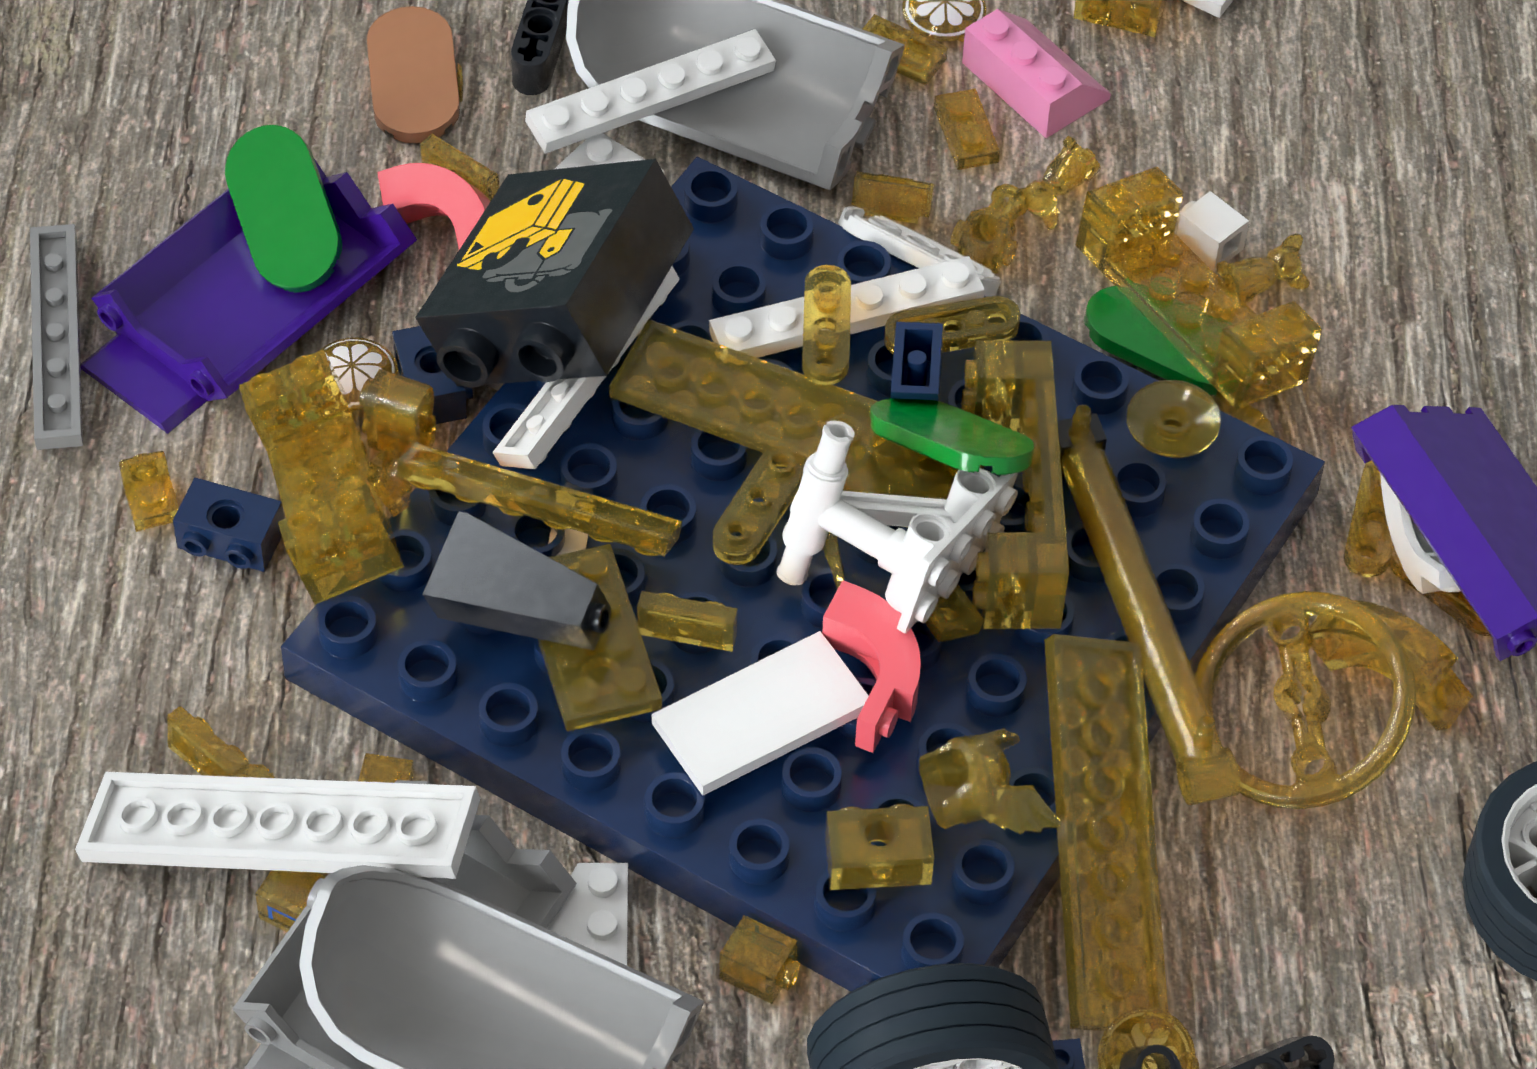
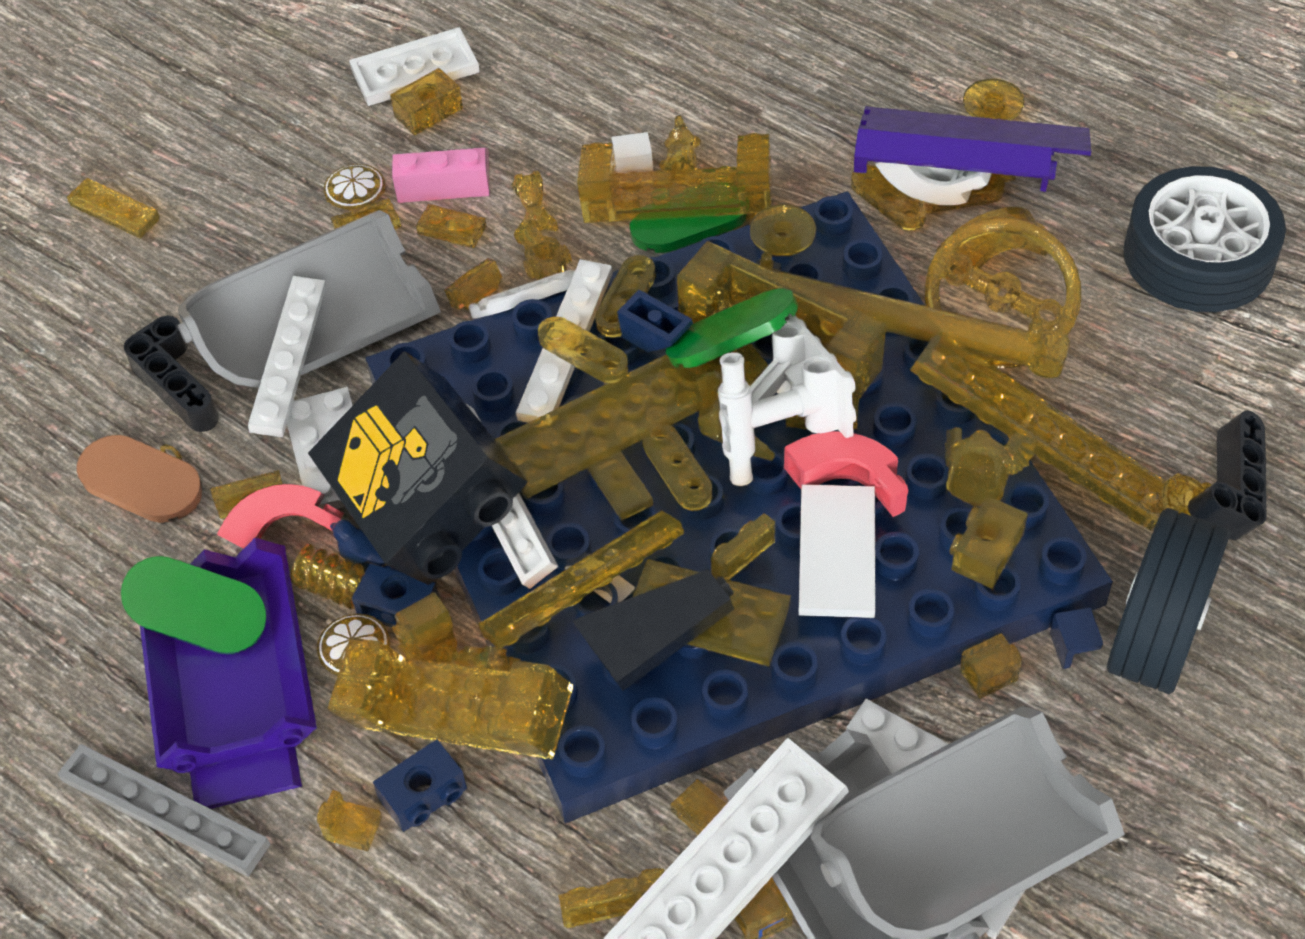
camera: 50 degrees left, 0 degrees up
(406, 286) = (326, 575): none -> clear yellow piece
(692, 467) = (620, 484): none -> clear yellow plate

